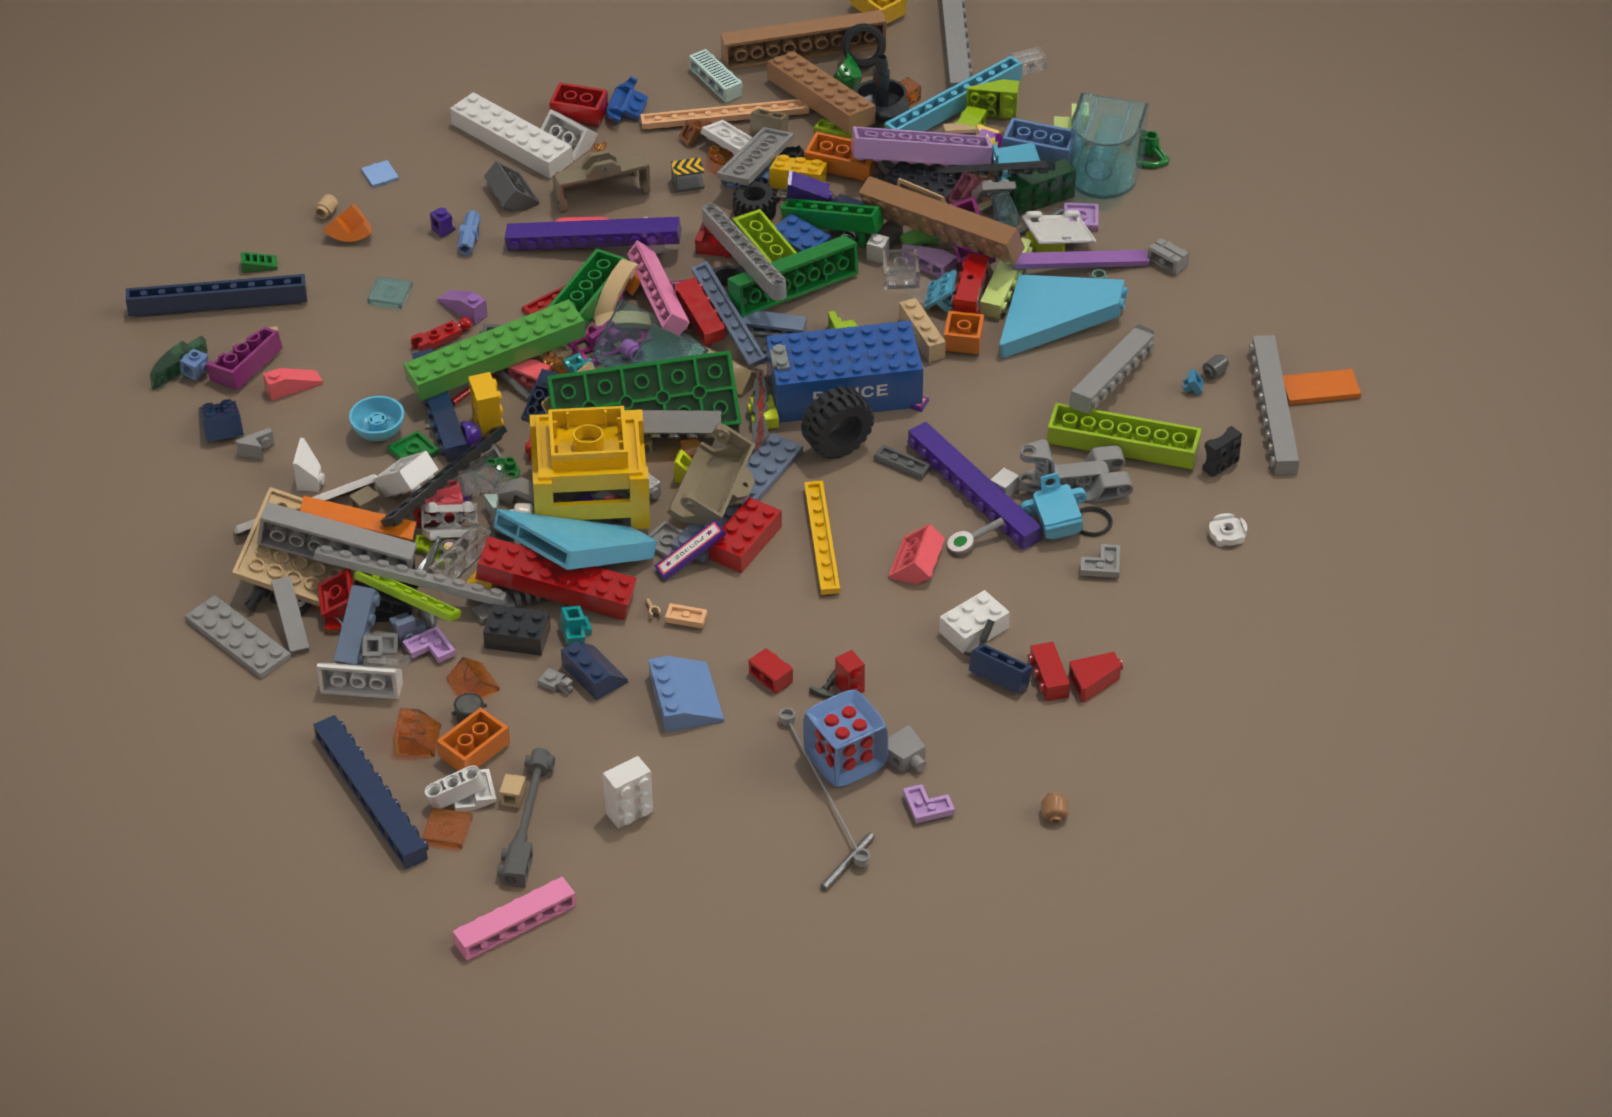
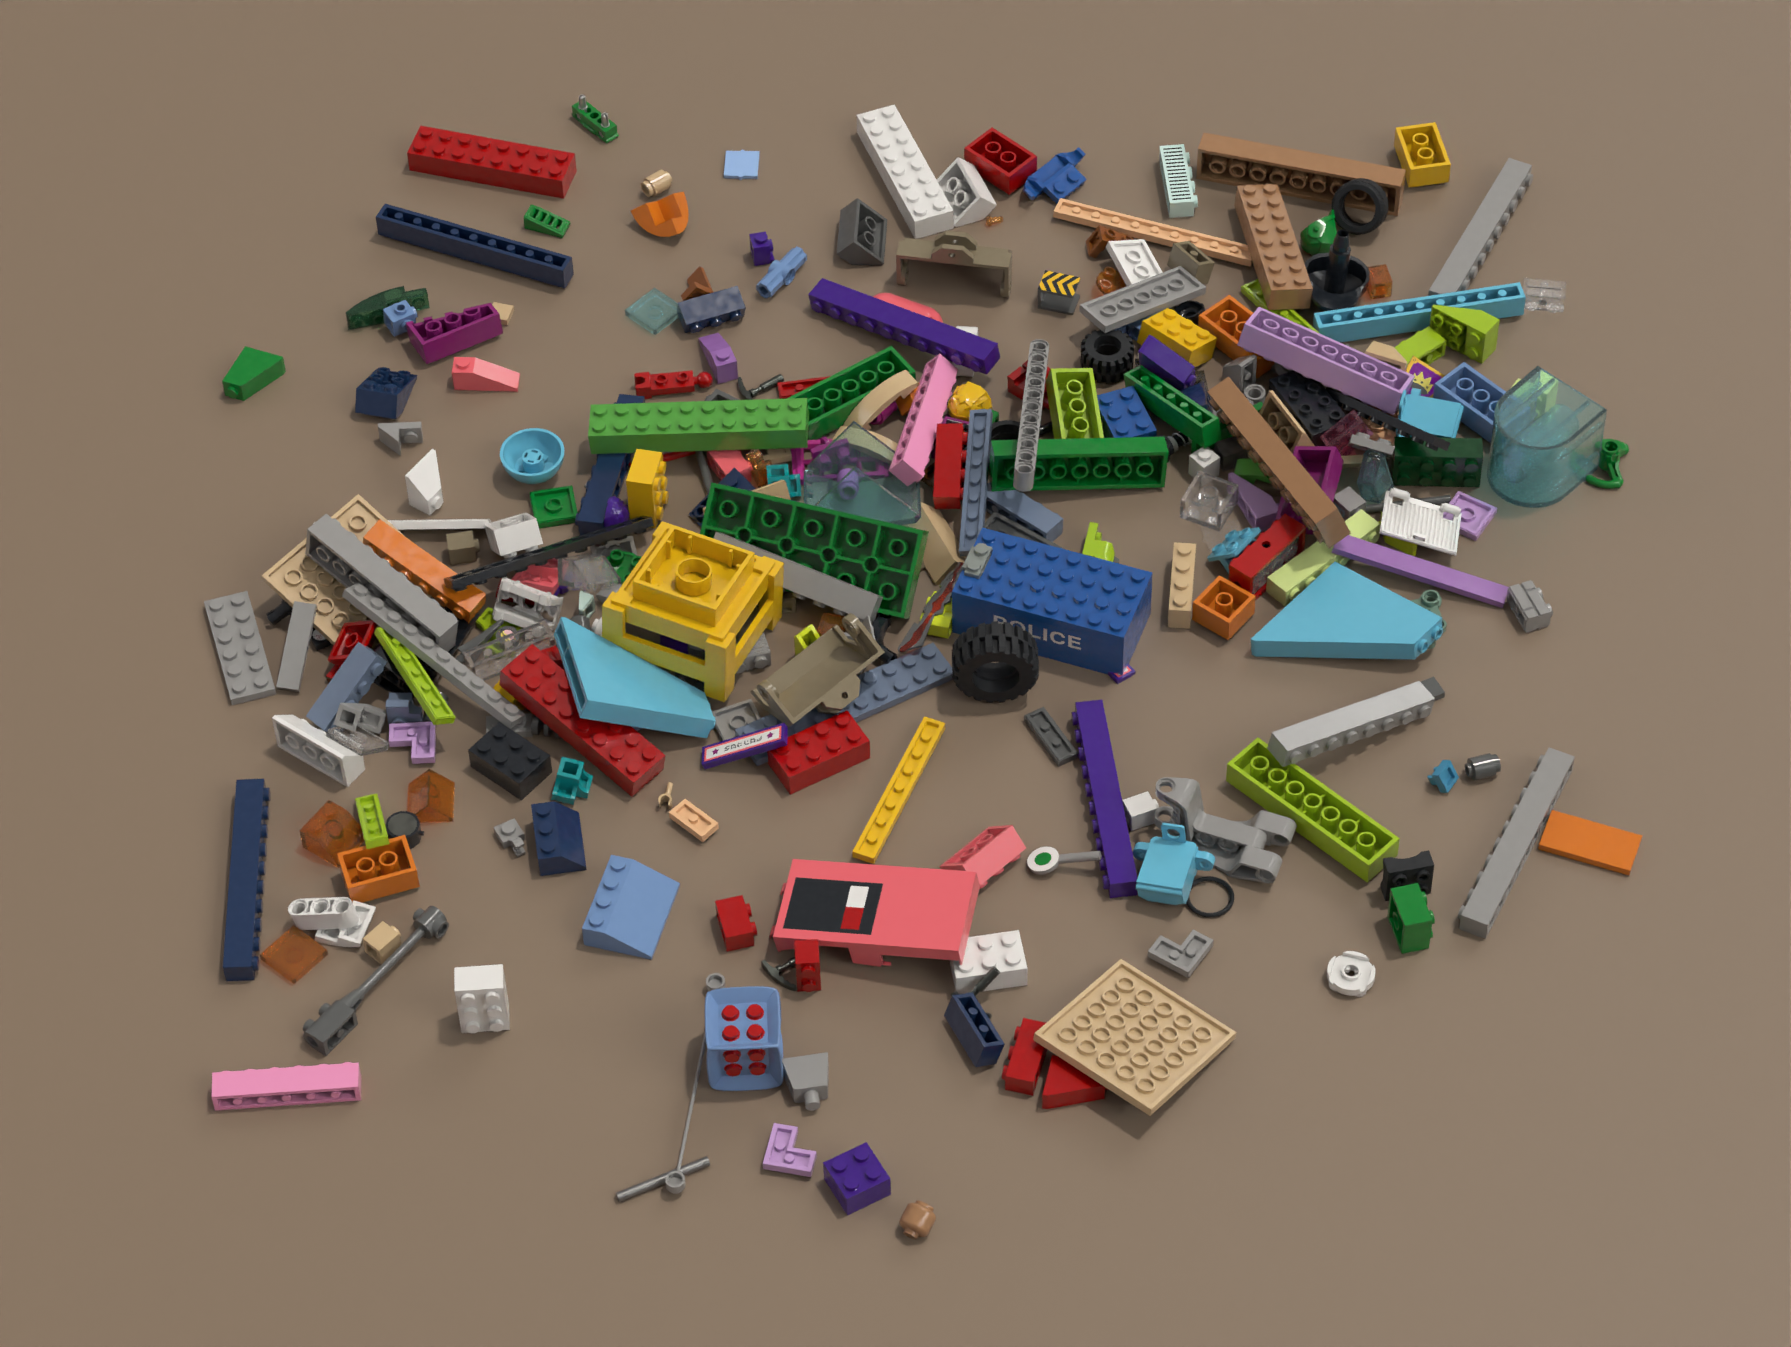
camera: 30 degrees right, 5 degrees up
(102, 444) = (252, 372): none -> green slope
(184, 234) = (492, 162): none -> red brick
(243, 181) = (594, 120): none -> green piece
(414, 264) = (698, 285): none -> dark orange bracket
(436, 275) = (711, 309): none -> dark blue brick
(444, 710) = (372, 821): none -> lime tile
(512, 314) = (748, 395): none -> pearl dark grey piece
(678, 265) = (967, 398): none -> yellow helmet
(856, 179) = (1241, 371): none -> light grey slope
(874, 616) = (877, 910): none -> coral piece
(991, 799) = (857, 1178): none -> dark purple brick
(1116, 626) = (1135, 1036): none -> tan plate
(1244, 477) = (1410, 918): none -> green brick

